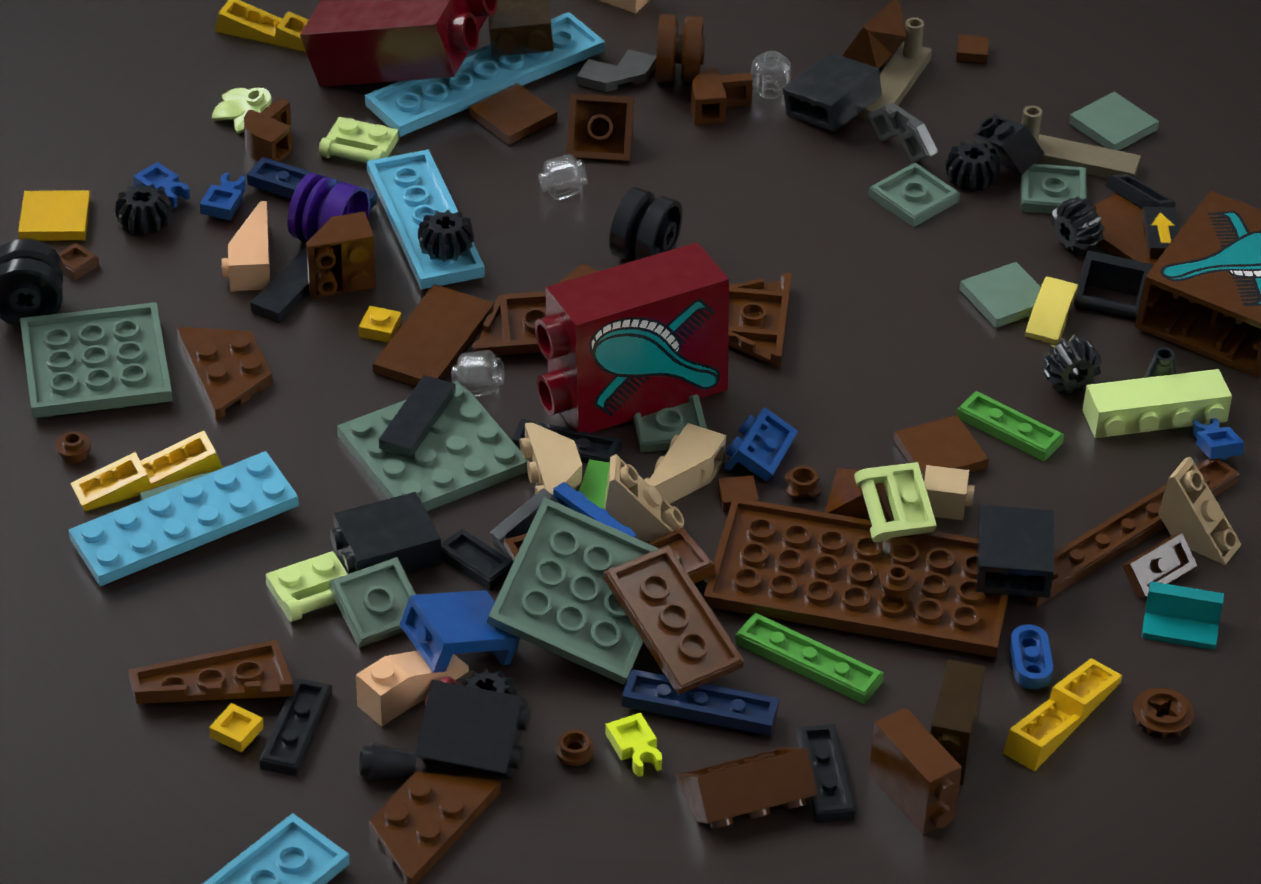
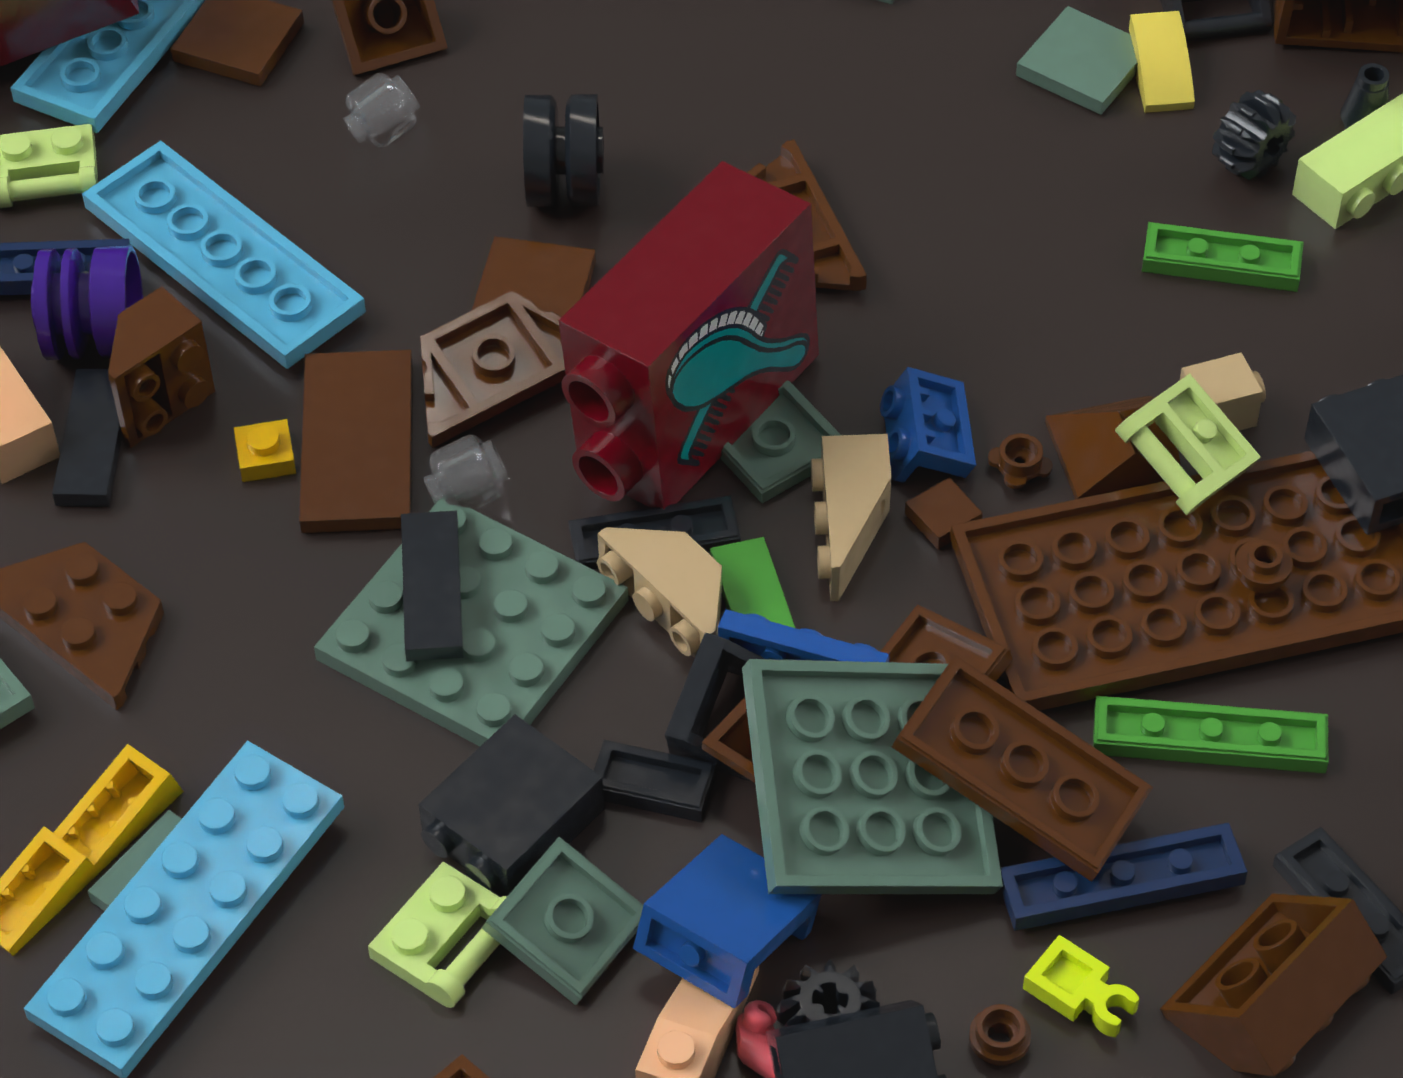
camera: 25 degrees left, 10 degrees up
(445, 235) = (286, 273): black gear -> none
(638, 503) = (839, 597): tan slope -> none
(942, 445) = (1160, 329): reddish brown tile -> none

